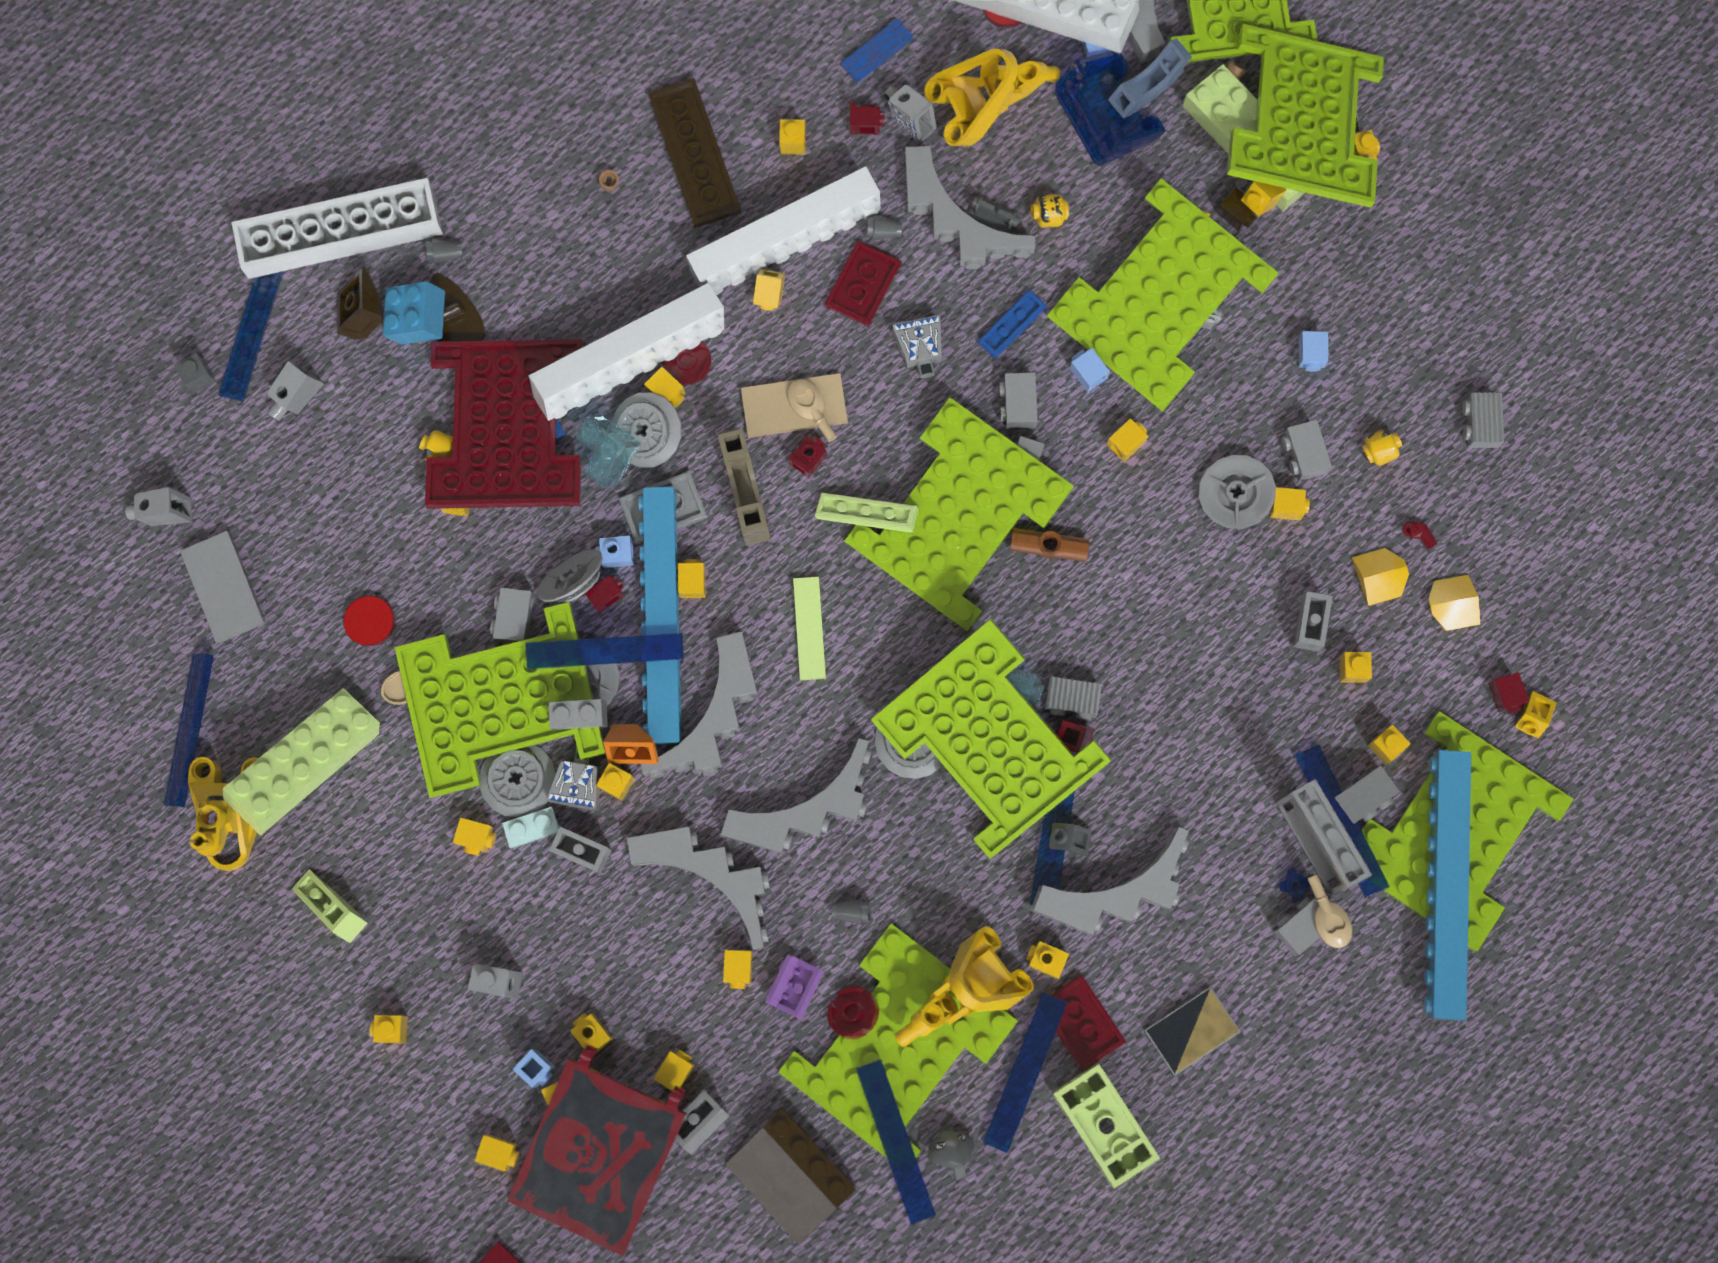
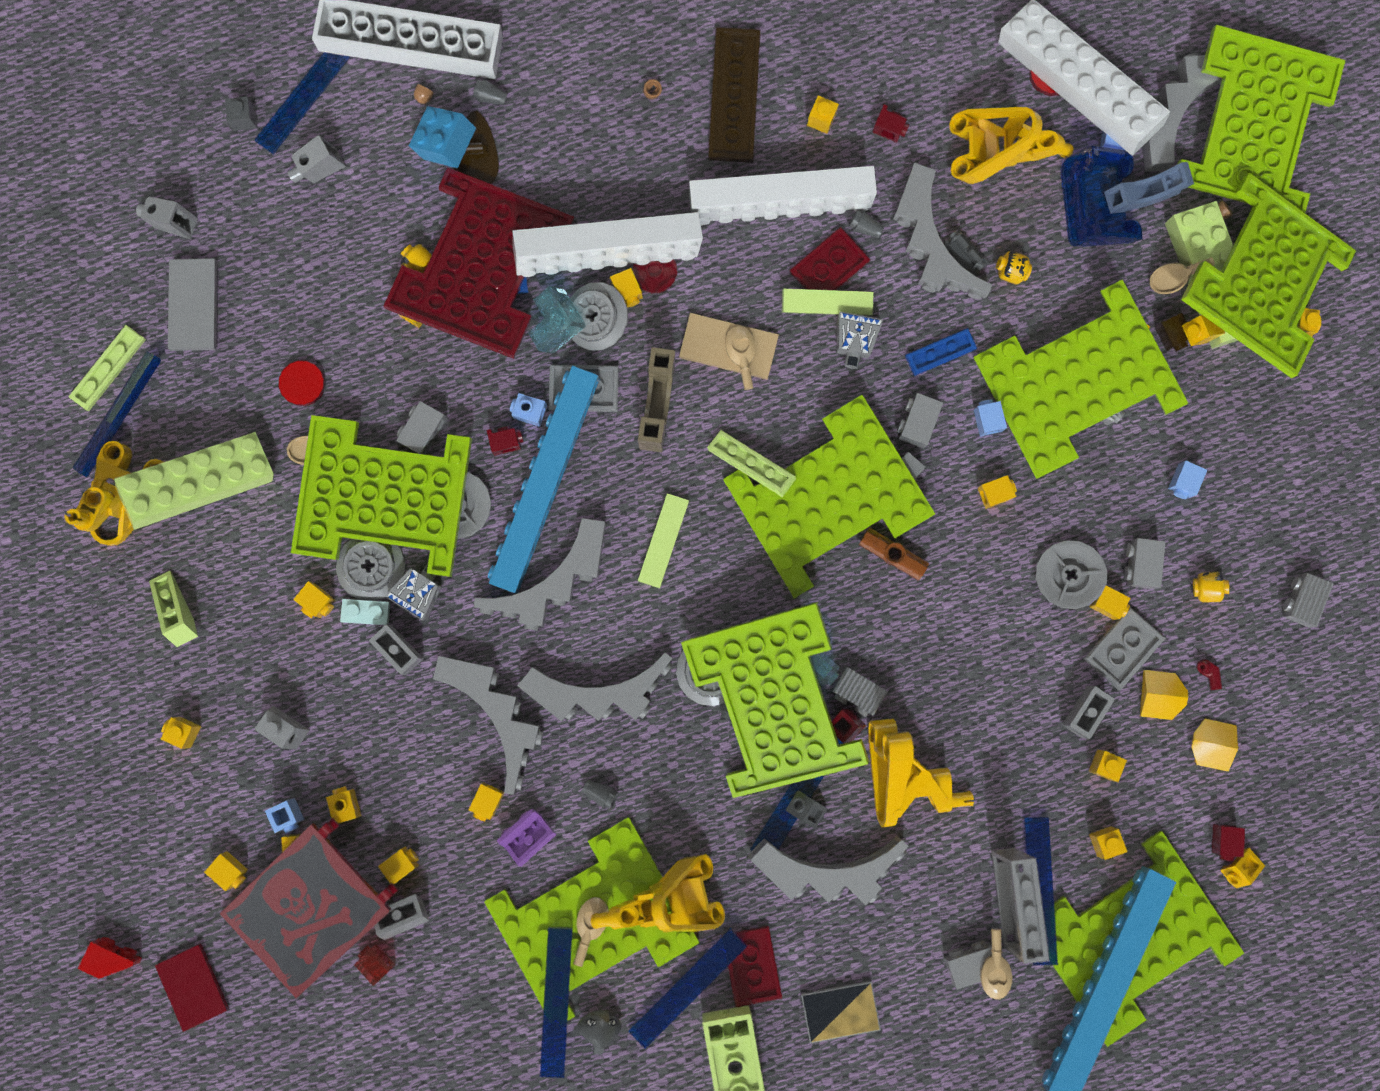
camera: 15 degrees right, 5 degrees up
(158, 688) = (107, 368): none -> yellowish green tile
(358, 307) = (399, 112): dark brown slope -> none
(378, 278) = (422, 94): none -> medium nougat hinge
(571, 577) = (481, 417): light grey piece -> none
(578, 714) = (438, 536): light grey brick -> none
(604, 651) = (483, 491): clear blue tile -> none
(615, 782) = (448, 604): yellow brick -> none
(629, 745) = (472, 579): orange slope -> none
(690, 1183) = (373, 963): none -> clear red brick
(691, 579) = (582, 459): yellow brick -> none
(769, 289) = (748, 238): yellow brick -> none
(791, 1176) = (460, 992): slope -> none
(805, 464) = (718, 401): dark red brick -> none
(853, 1012) = (566, 879): dark red tile -> none
(875, 320) = (827, 302): none -> yellowish green tile
(877, 51) = (925, 69): blue tile -> none
(896, 1053) = (584, 926): none -> tan piece
(911, 112) = (932, 134): light grey torso -> none
(1047, 959) = (745, 902): yellow brick -> none
(1152, 763) = (902, 778): none -> yellow connector
(1212, 156) = (1173, 276): none -> tan piece
(1295, 892) = (985, 927): clear blue plate -> none
(1323, 544) = (1124, 649): none -> light grey tile
(1368, 794) = (1072, 879): light grey brick -> none

